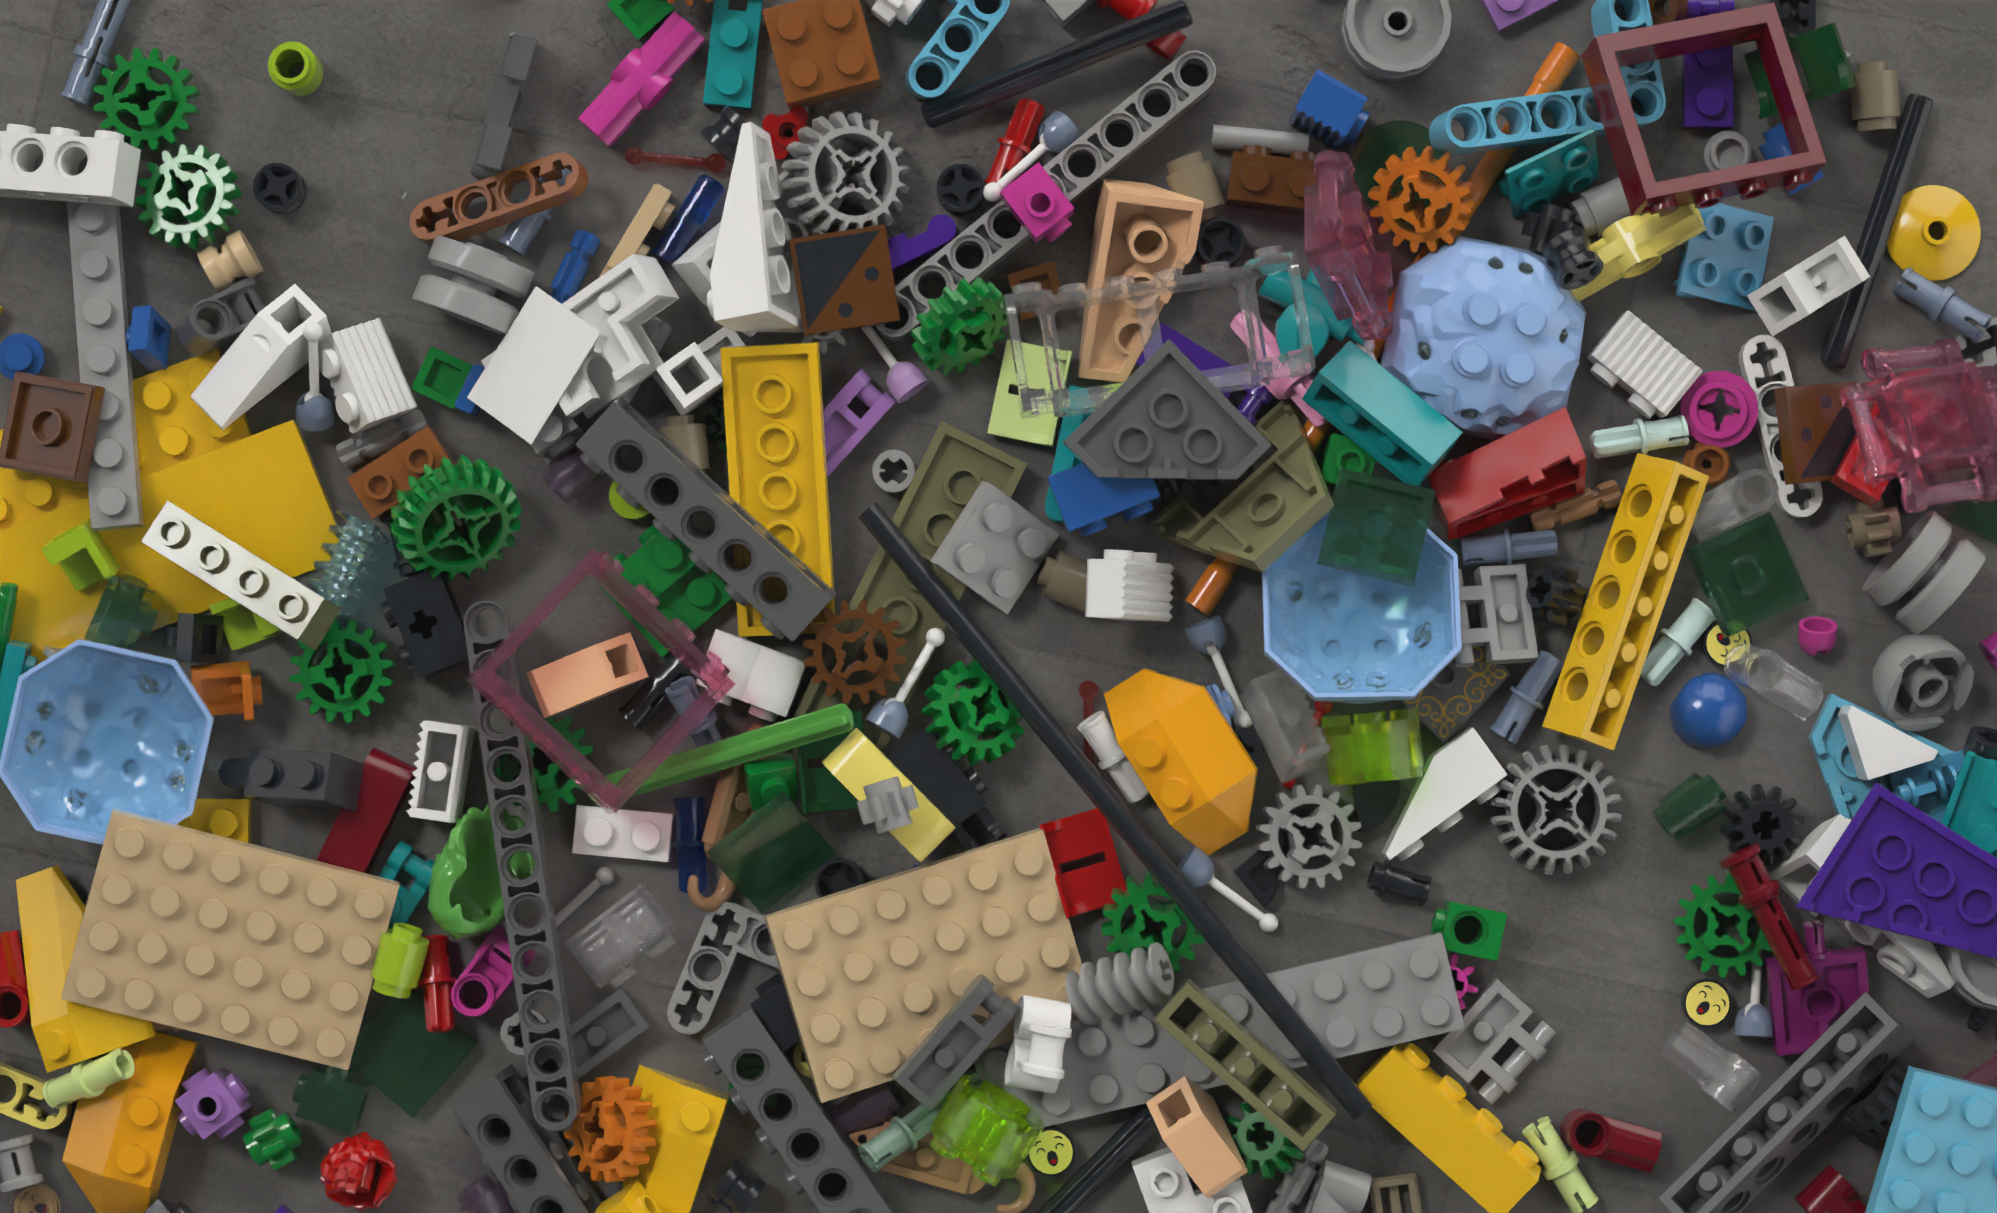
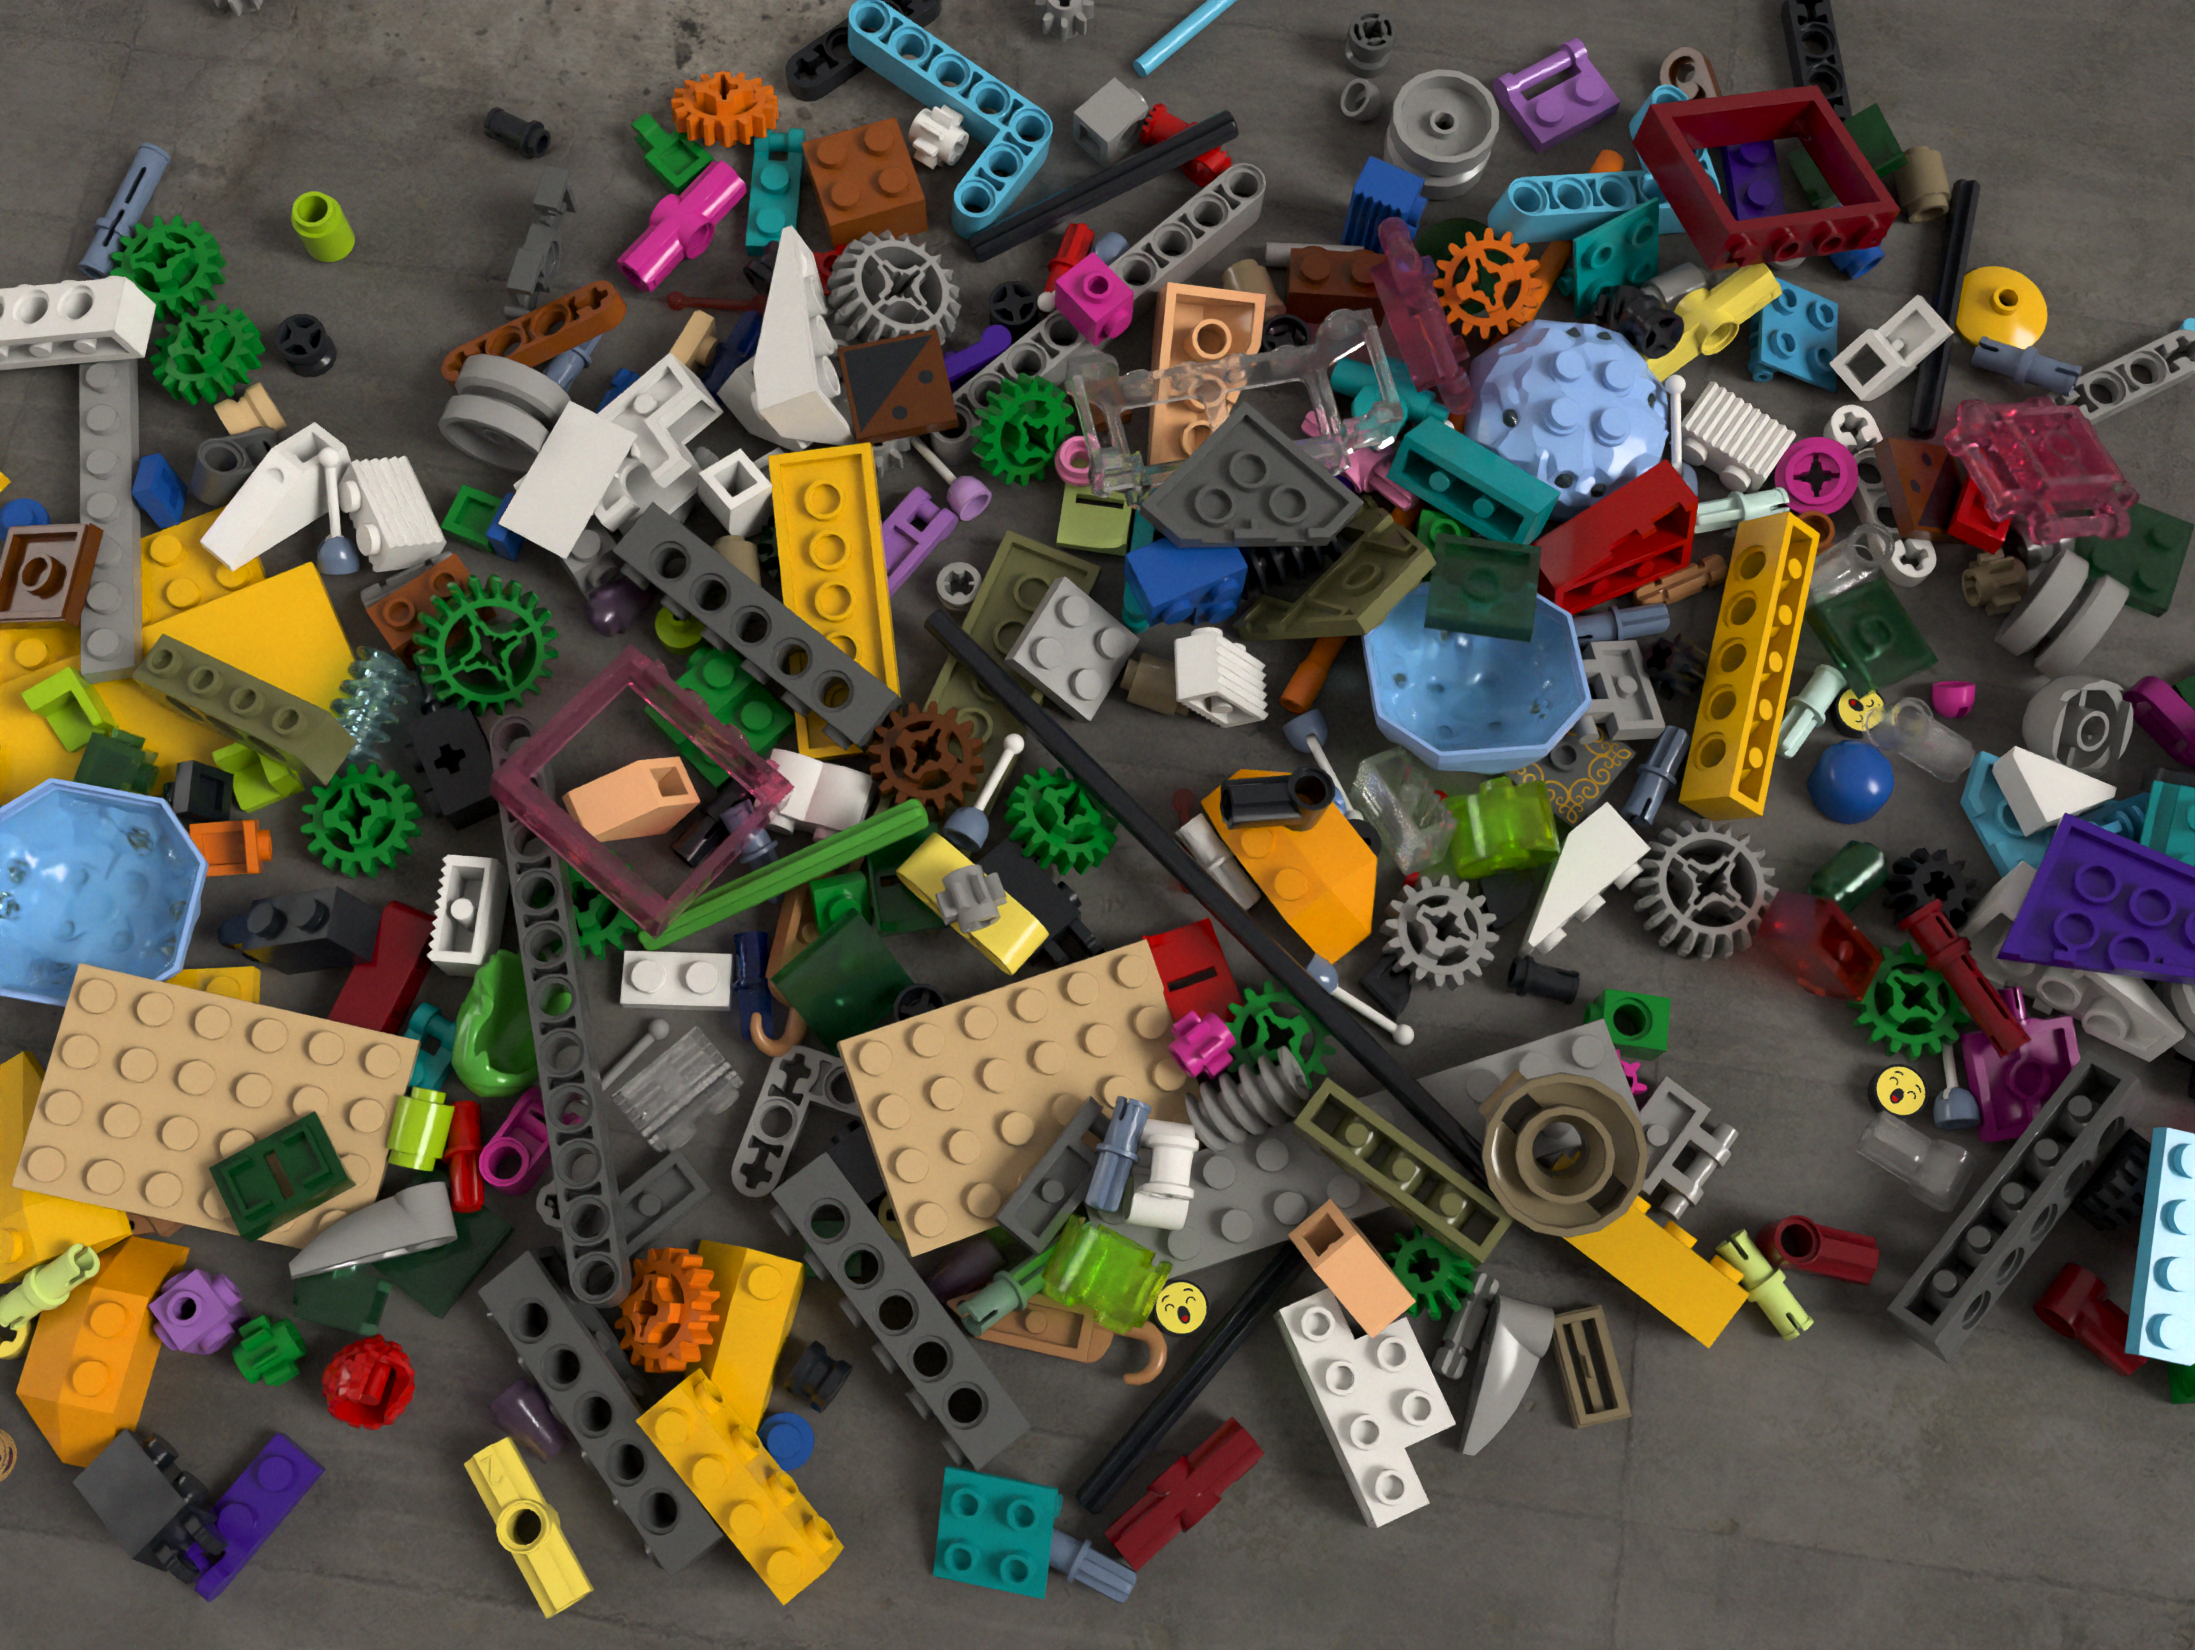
camera: 10 degrees left, 15 degrees down
(262, 1010) = (253, 1190): none -> dark green piece
(369, 1047) = (390, 1228): none -> light grey piece
(999, 350) = (1067, 452): none -> bright pink plate
(1001, 1033) = (1117, 1154): none -> sand blue axle
(1084, 932) = (1201, 1045): none -> dark pink gear
(1163, 722) = (1274, 800): none -> black piece
(1369, 1096) = (1587, 1192): none -> dark tan piece
(1585, 403) = (1675, 386): none -> white hinge
(1646, 876) = (1819, 946): none -> clear red brick

